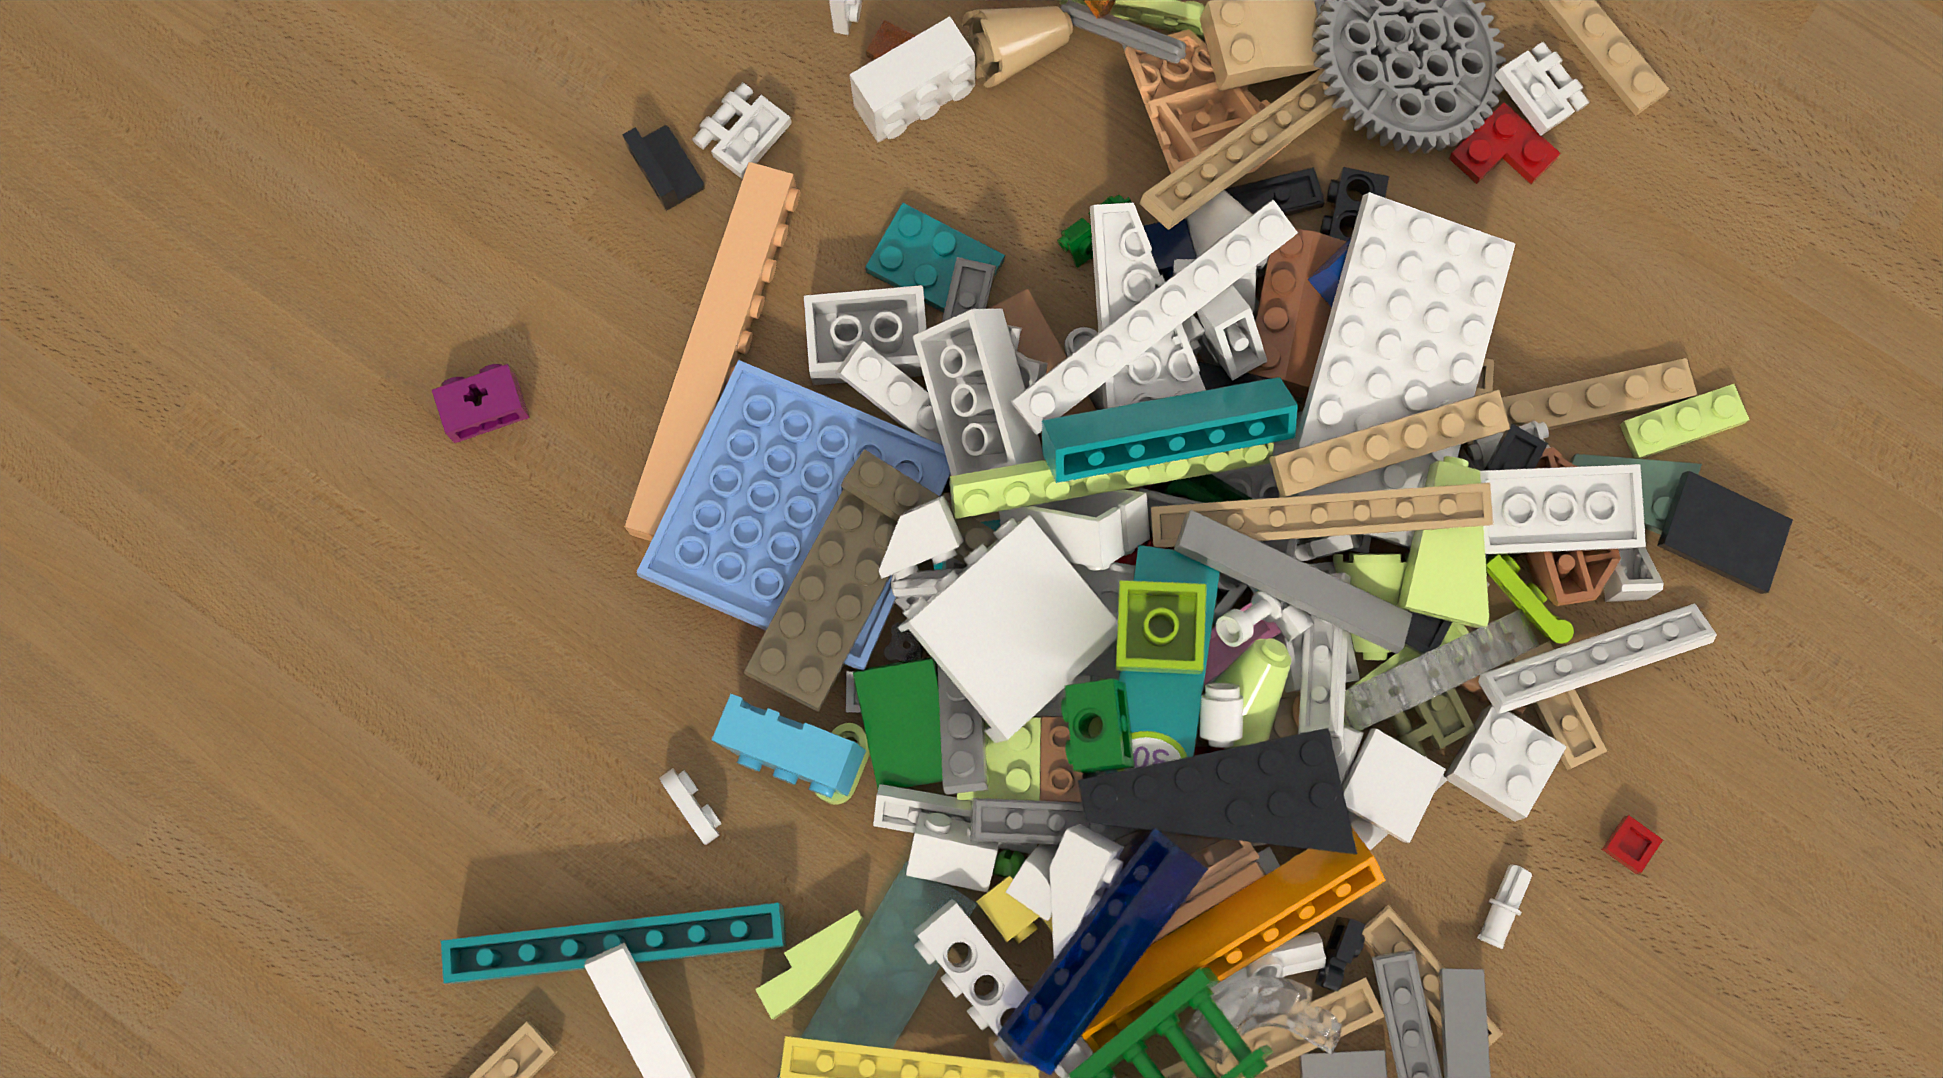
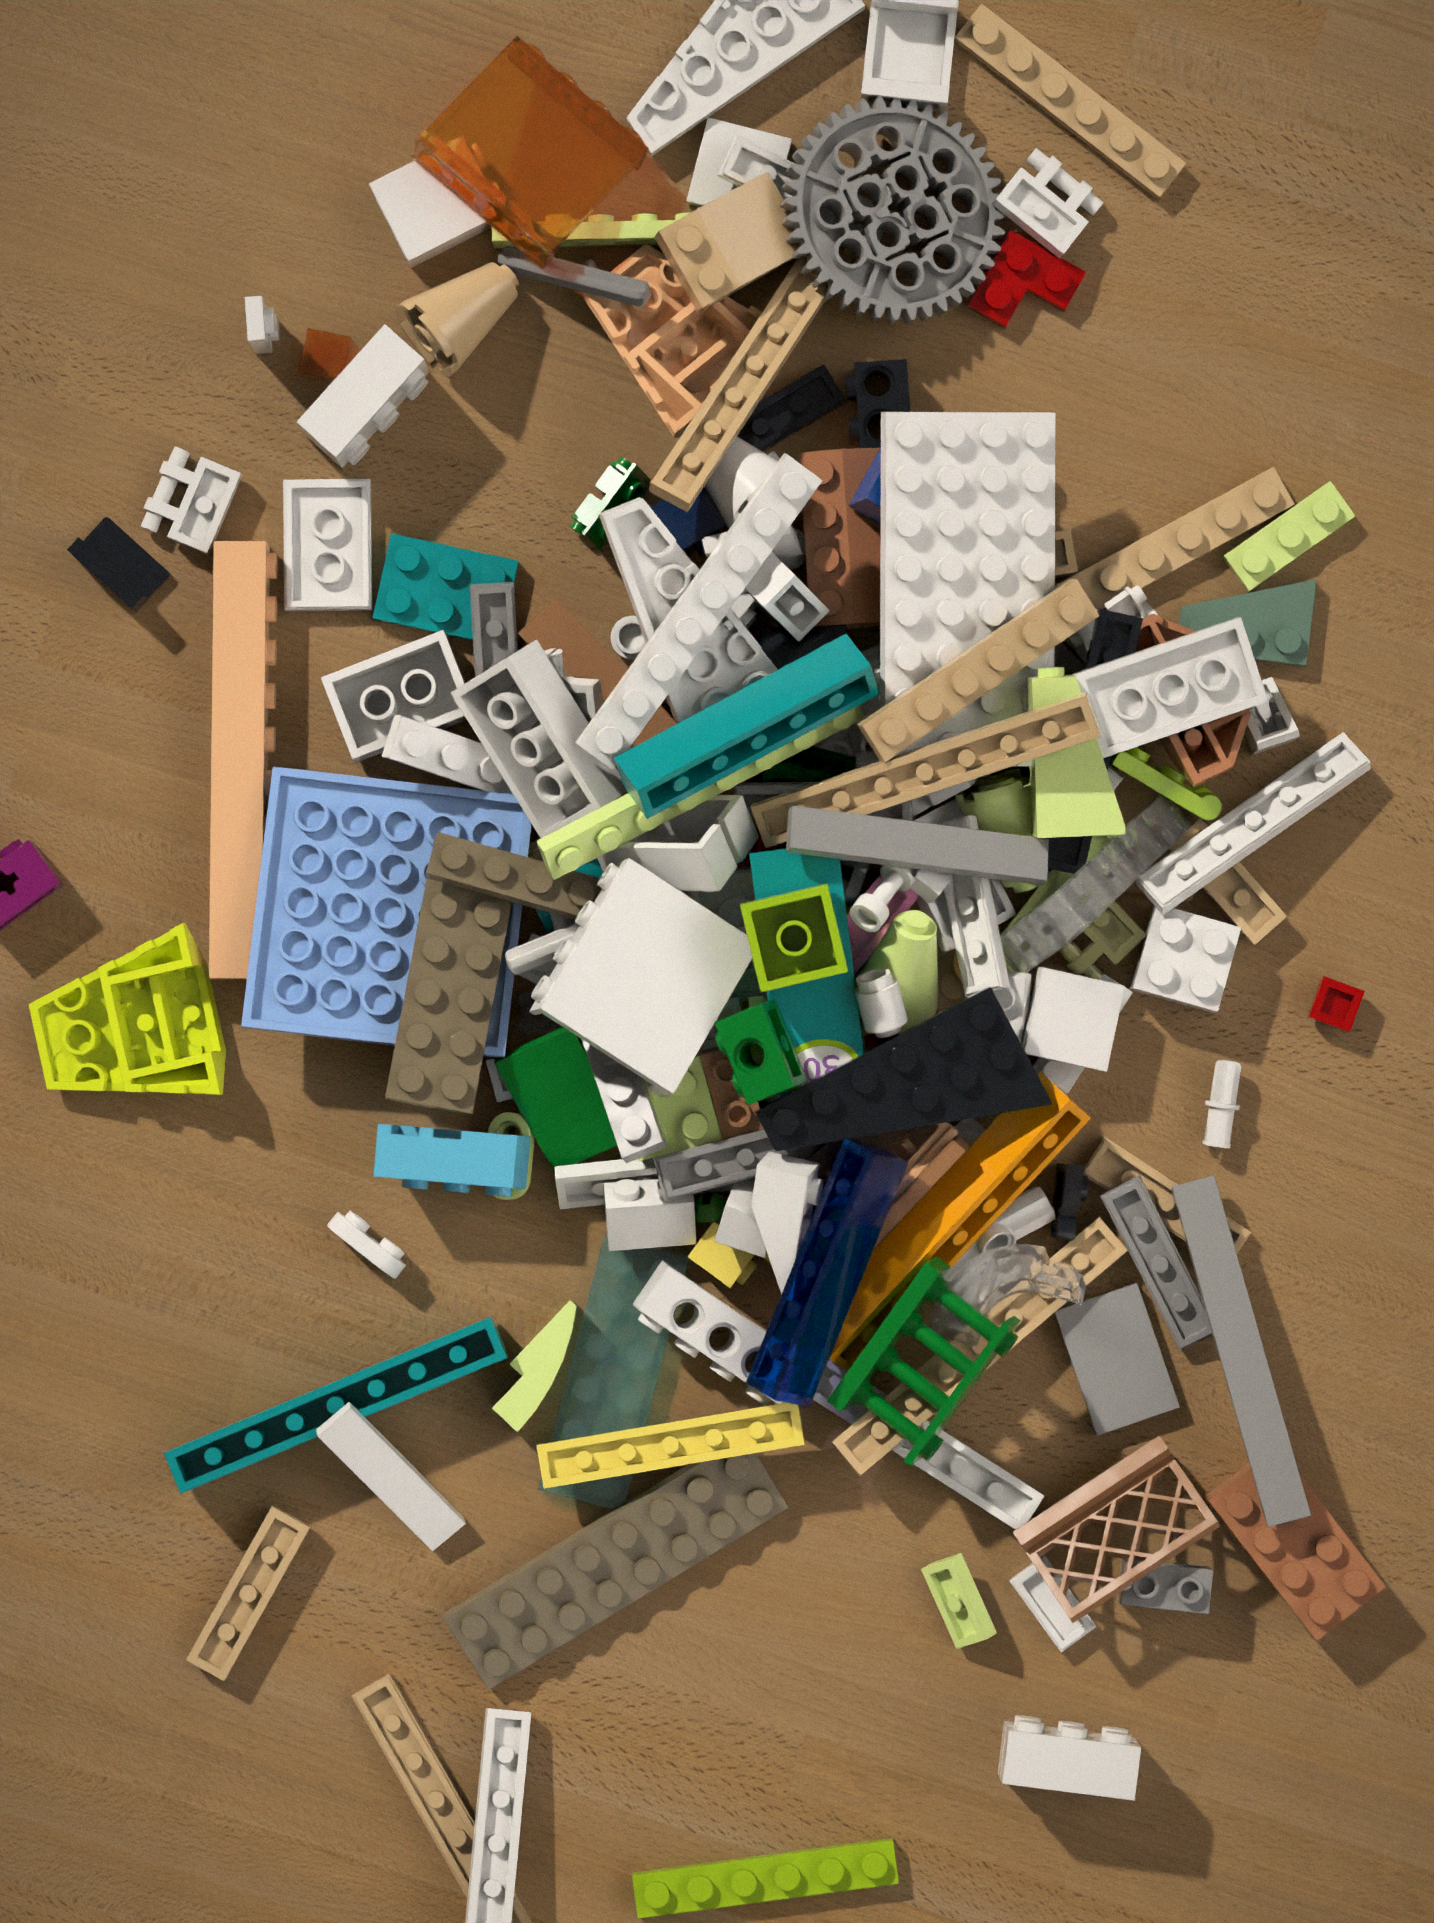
camera: 15 degrees left, 10 degrees up
(549, 550) = (135, 1024): none -> neon yellow wedge
(845, 199) = (327, 545): none -> white tile
(921, 535) = (526, 908): white slope -> none
(1725, 532) = (1356, 648): black tile -> none

